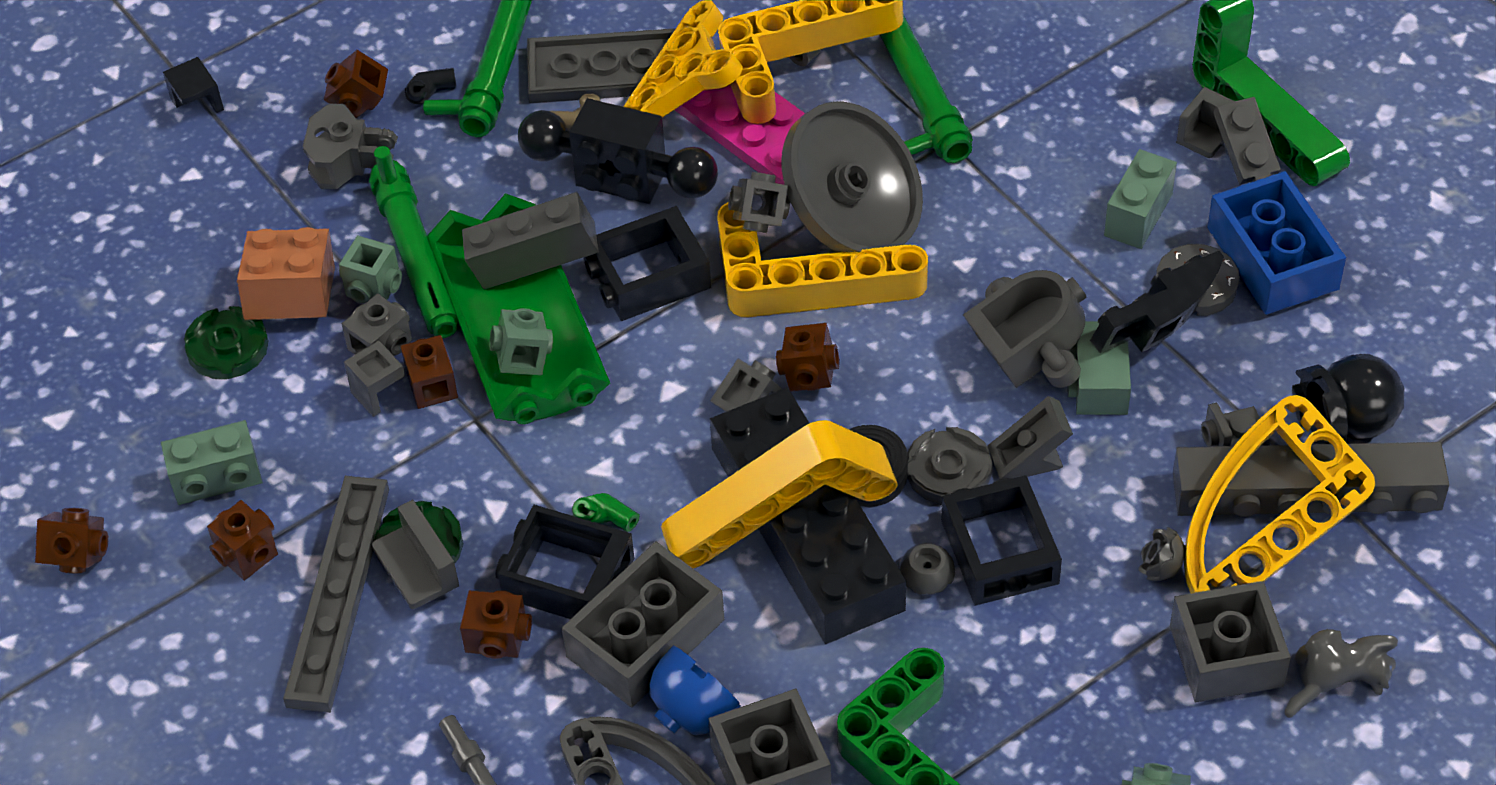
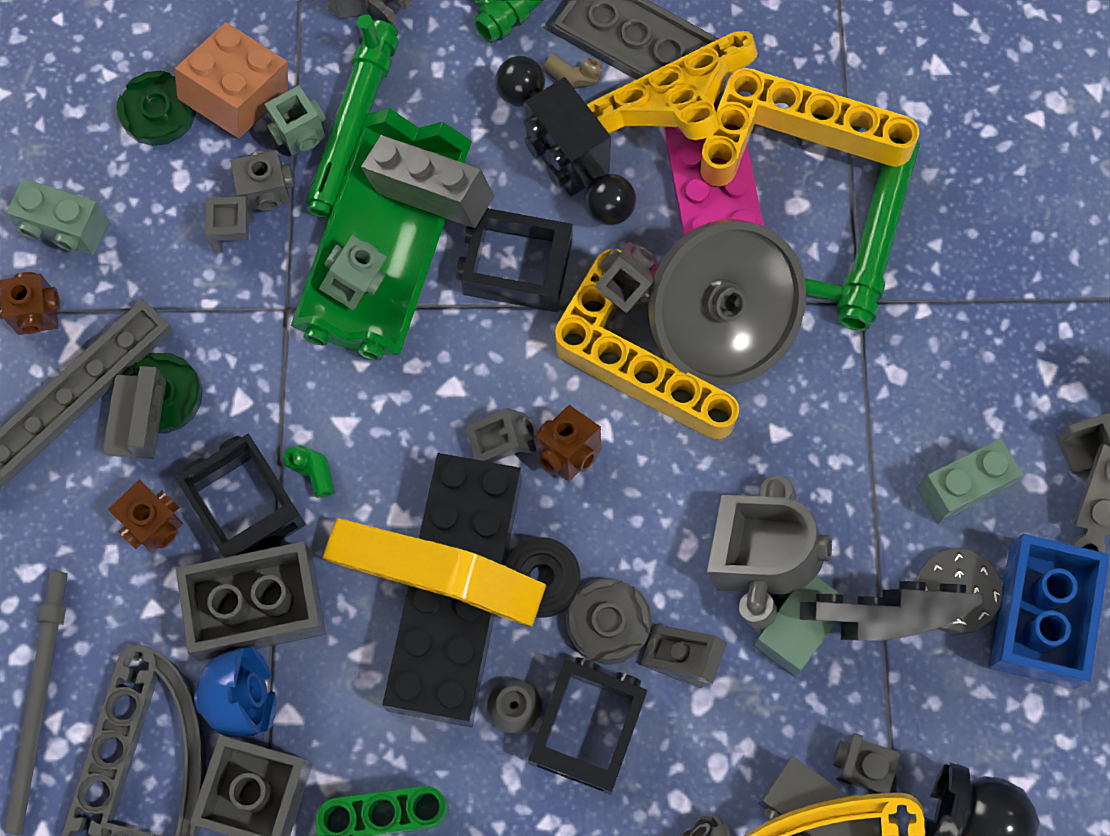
camera: 35 degrees right, 20 degrees up
(429, 371) = (275, 244): reddish brown brick -> none

